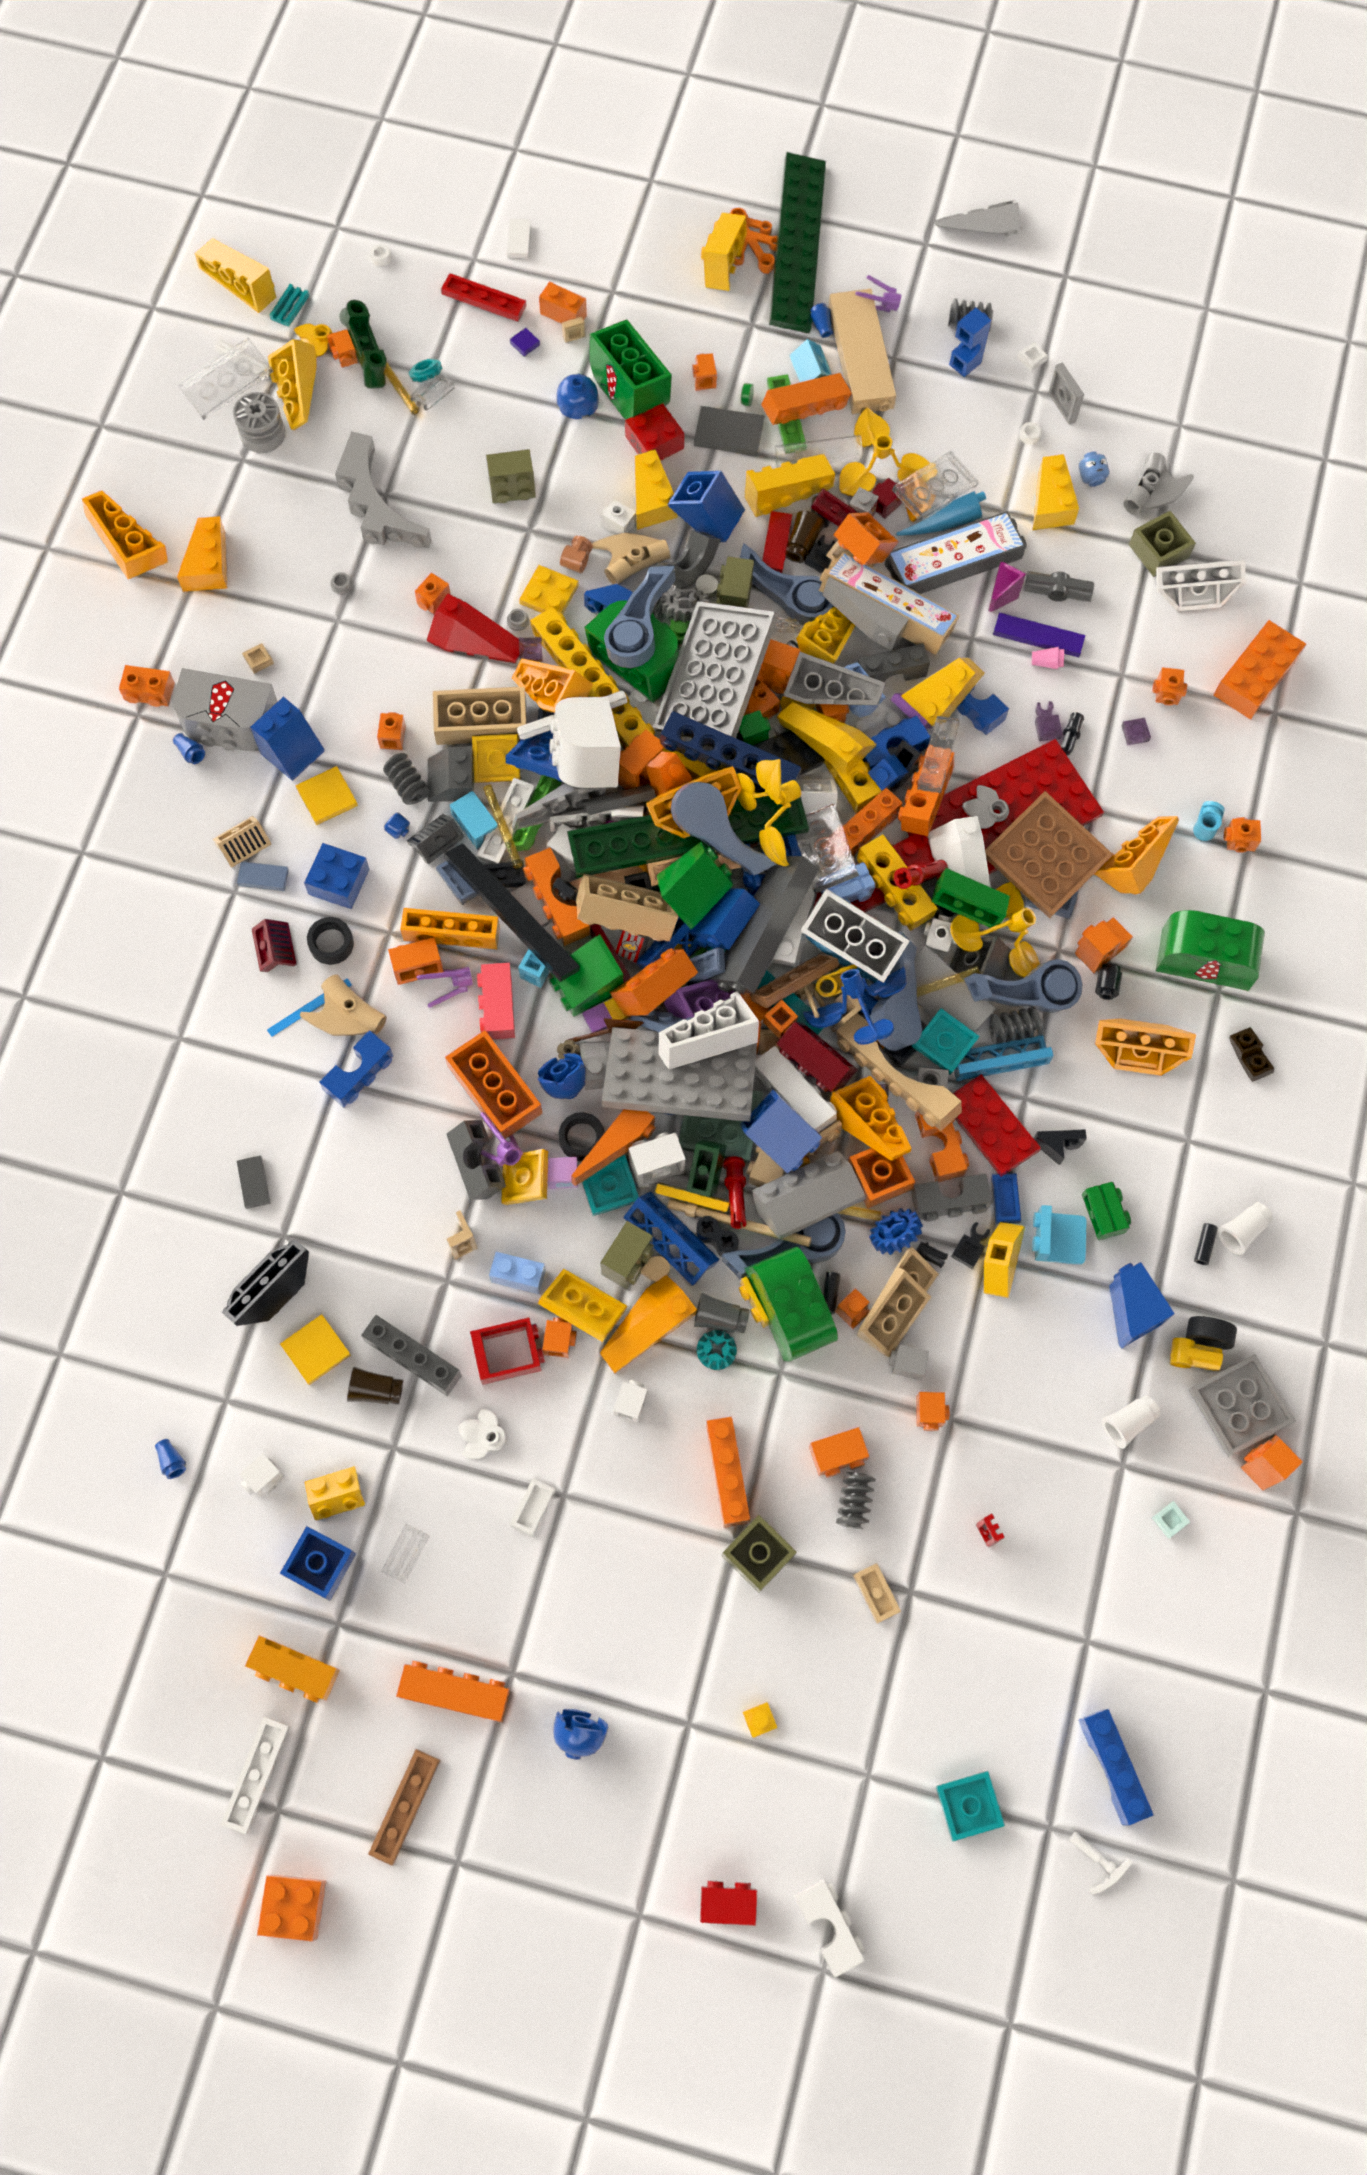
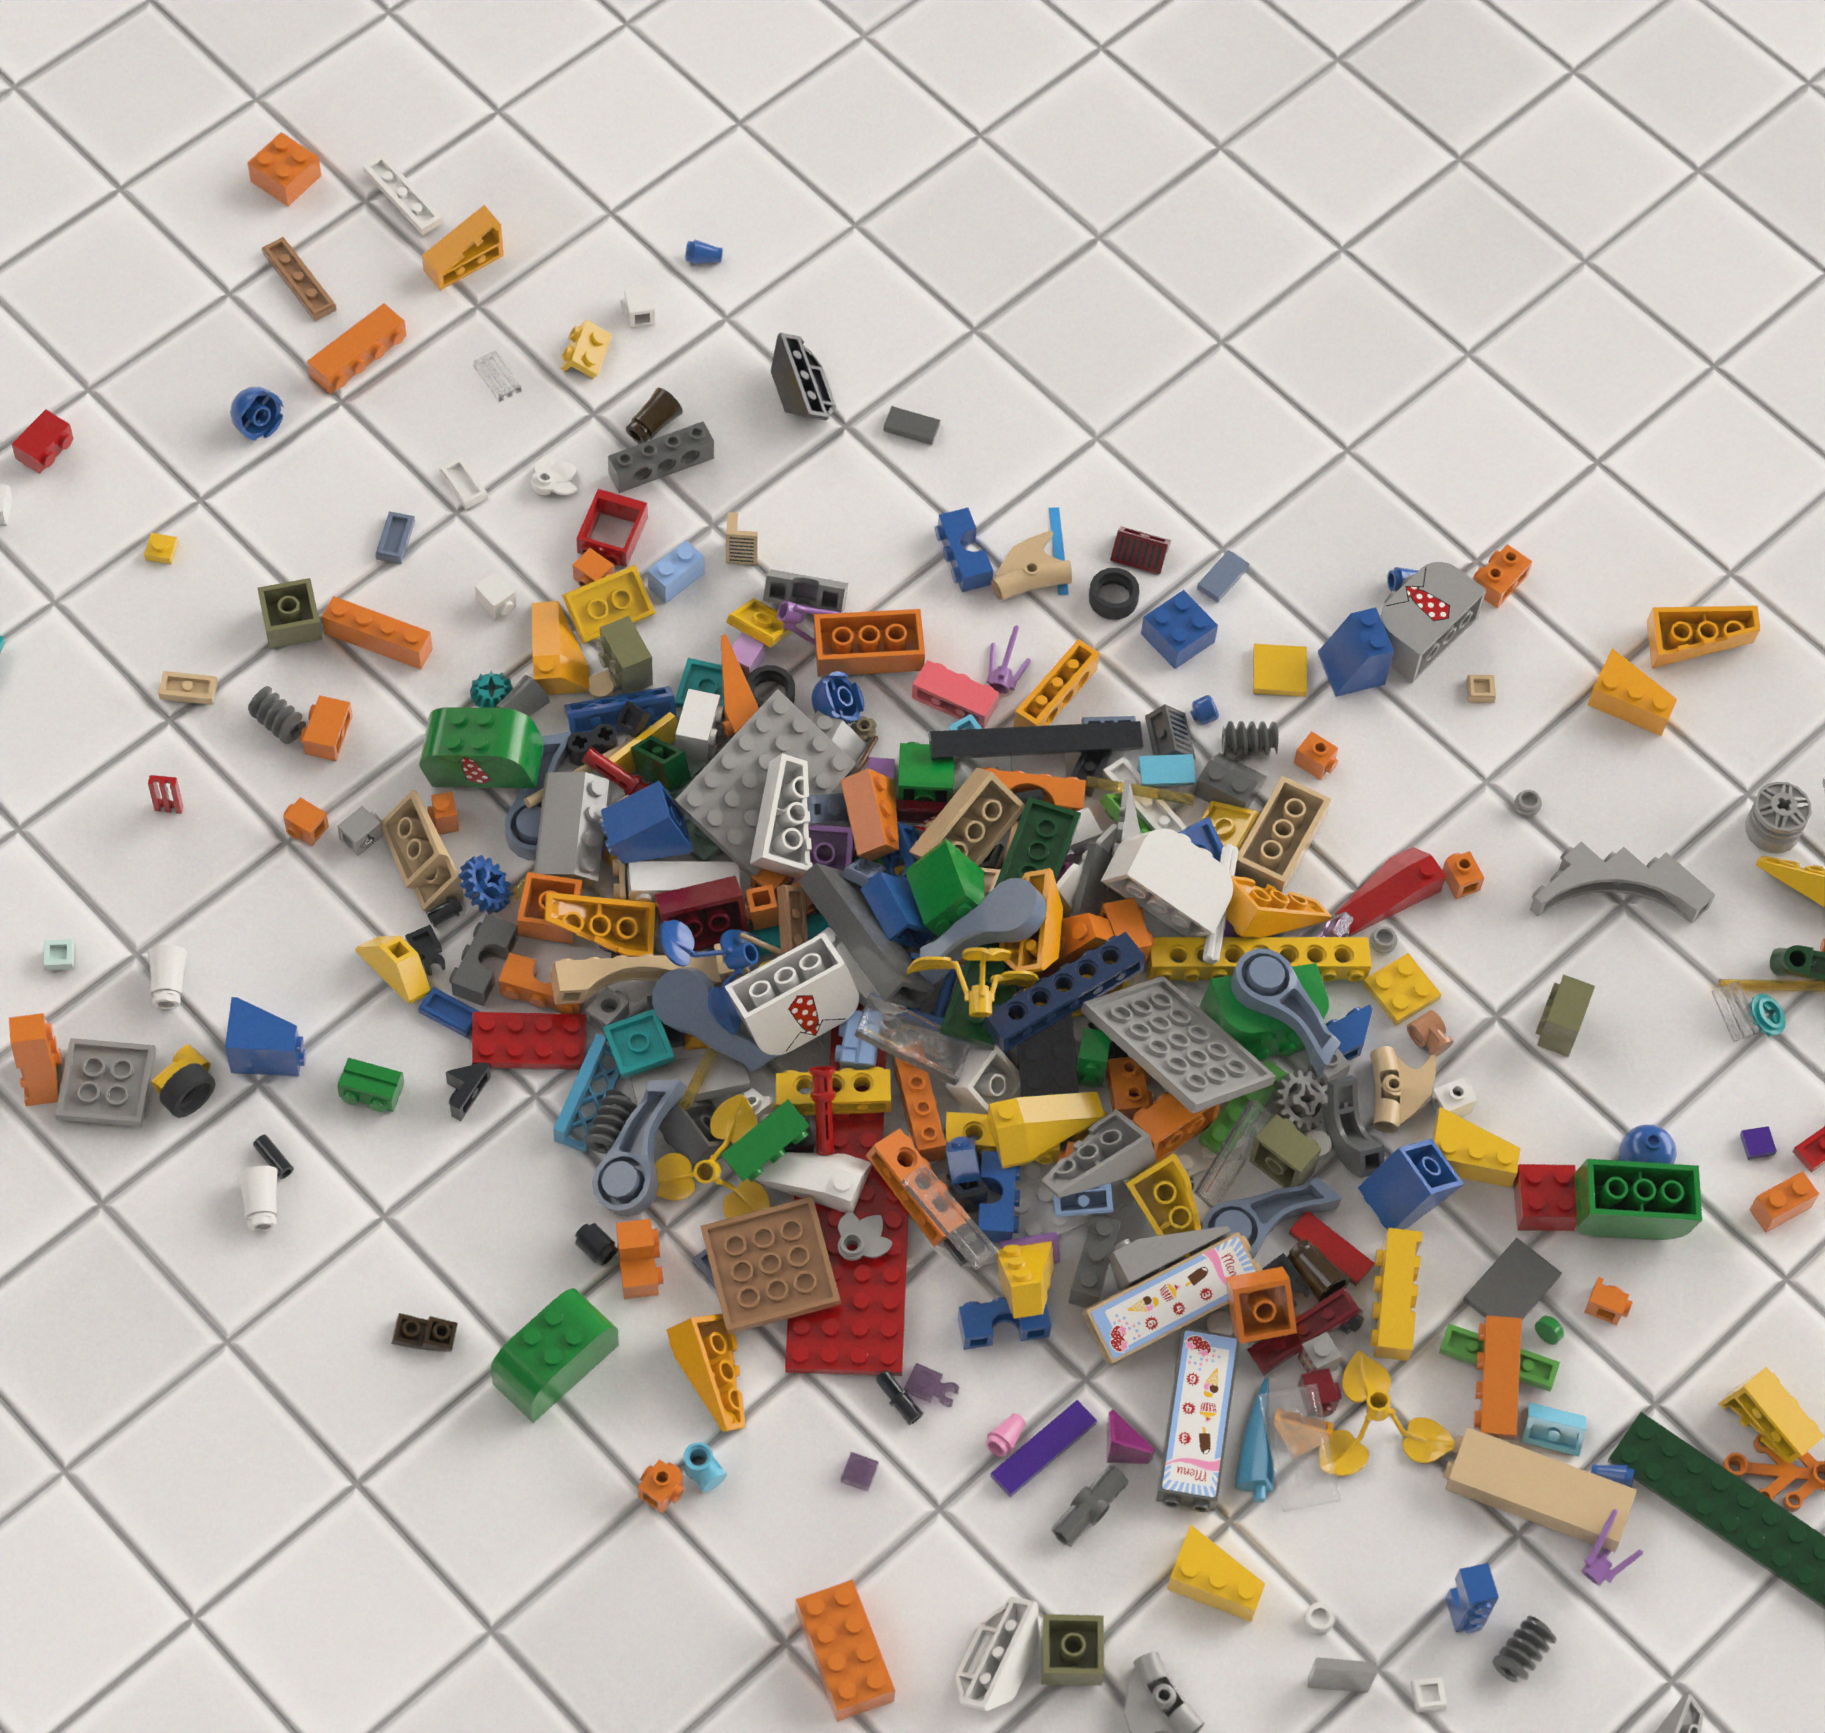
camera: 120 degrees right, 10 degrees down
(242, 841) = (1273, 574): tan panel -> none
(315, 1349) = (722, 397): yellow tile -> none
(318, 1563) = (533, 305): blue brick -> none
(415, 960) = (1043, 647): orange brick -> none
(573, 329) = (1744, 1196): tan tile -> none
(622, 1527) = (395, 537): none -> sand blue tile
(680, 1213) = (632, 719): none -> black plate
(831, 1289) = (473, 808): black axle -> none
(834, 450) = (1424, 1358): clear tile -> none
(1059, 1237) = (378, 1026): medium azure bracket -> none
(1094, 469) = (1222, 1648): medium blue head -> none
(1143, 1045) = (510, 1224): light orange wedge -> none
(1169, 686) = (885, 1532): orange brick -> none

